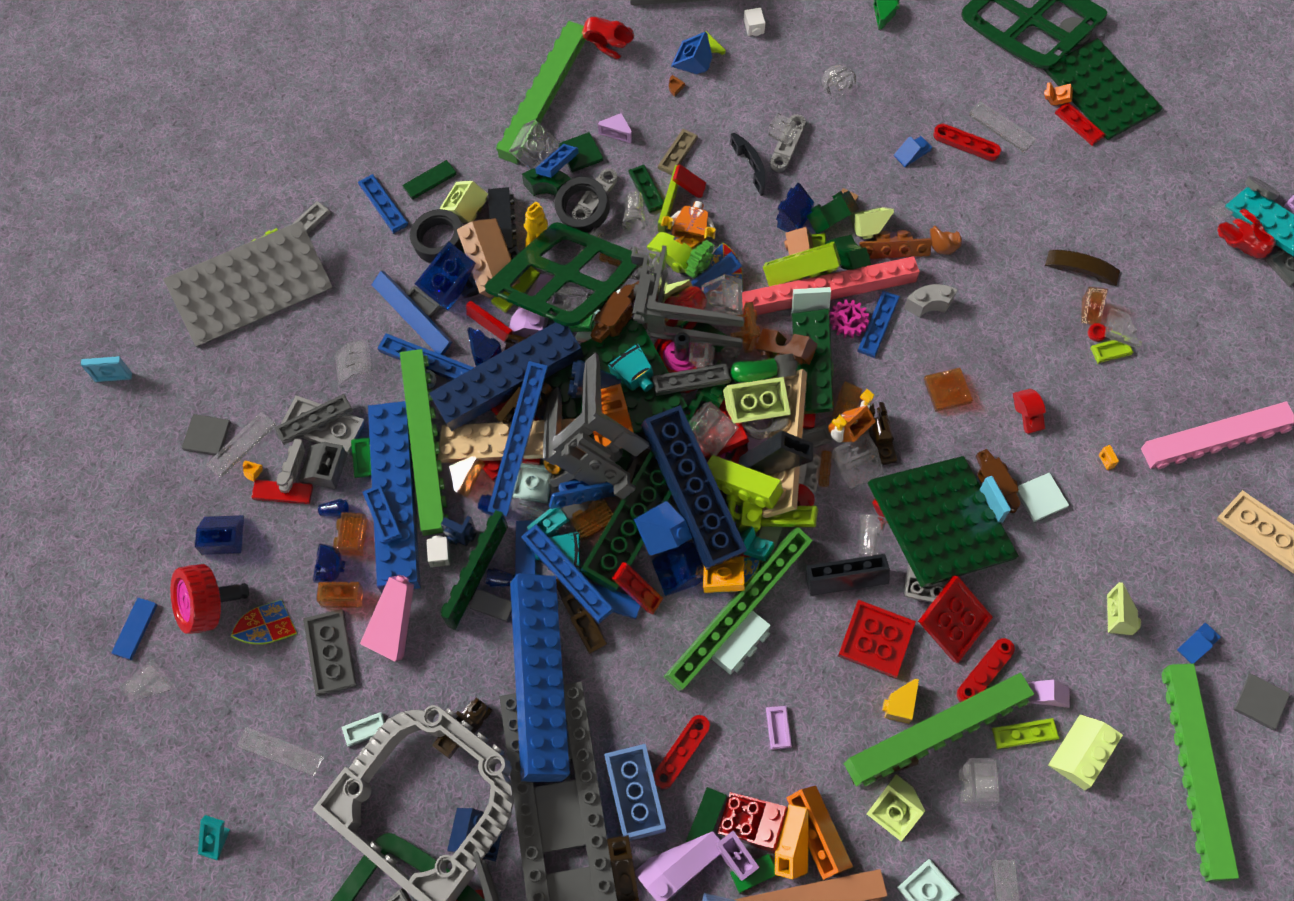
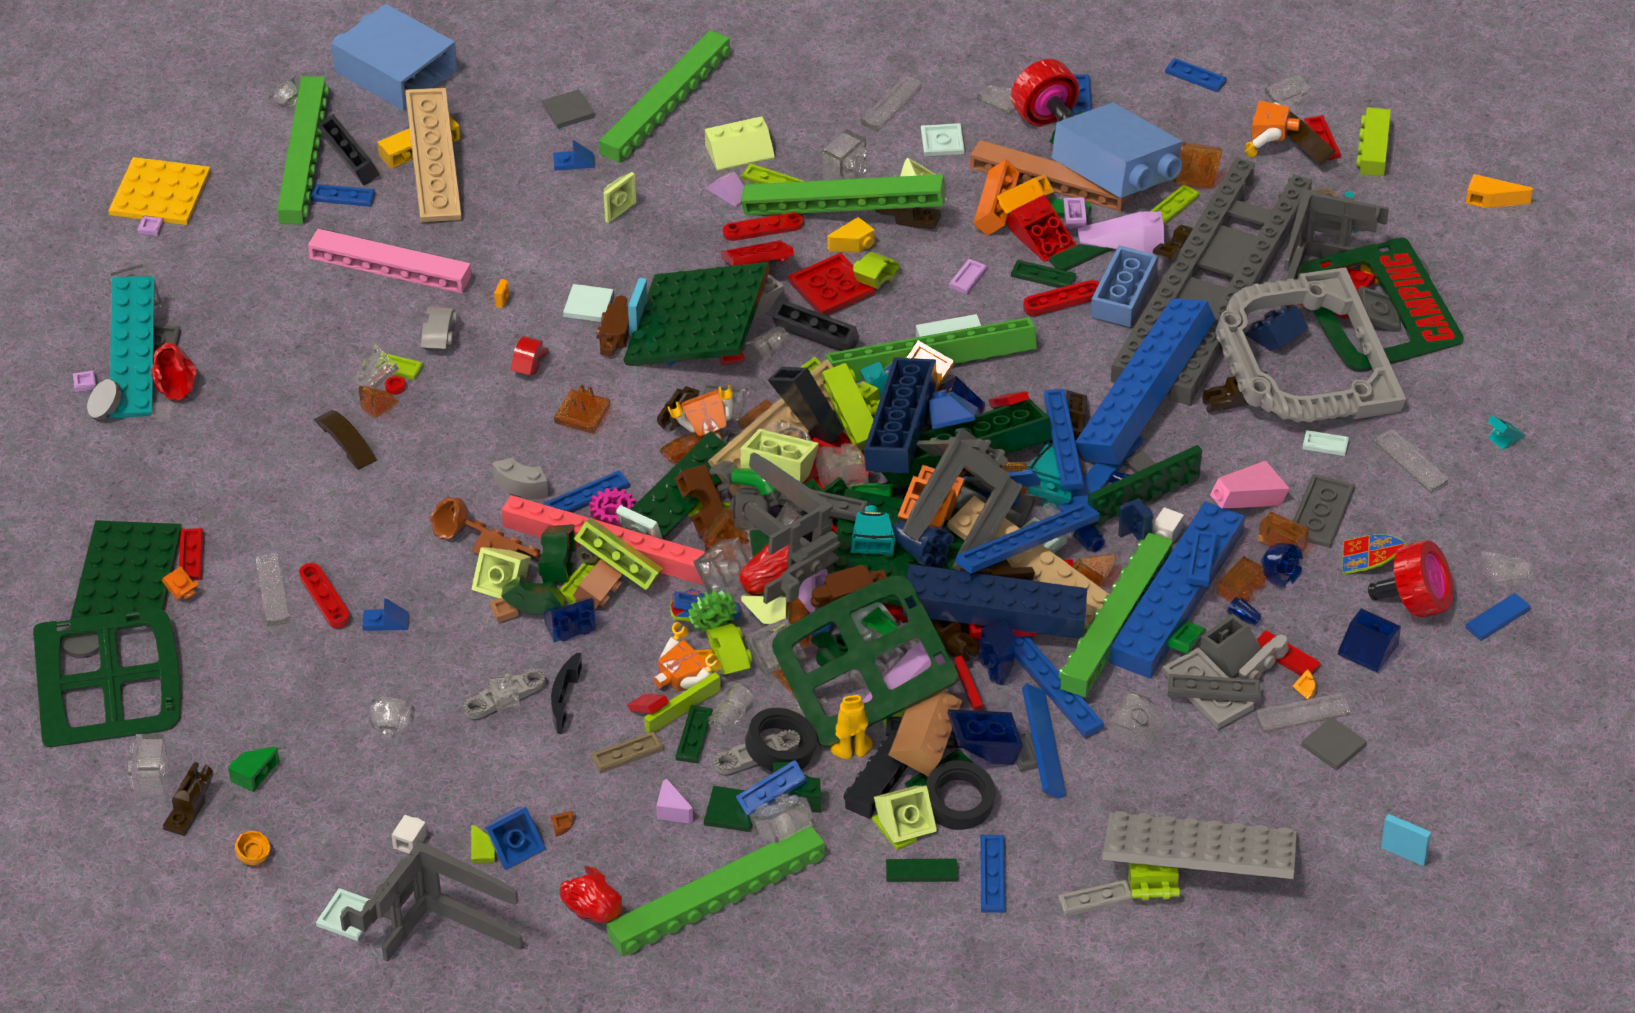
camera: 145 degrees left, 20 degrees down
(718, 772) = (1042, 274): none -> dark green tile
(851, 669) = (875, 269): none -> lime brick
(1117, 392) = (438, 330): none -> light grey brick

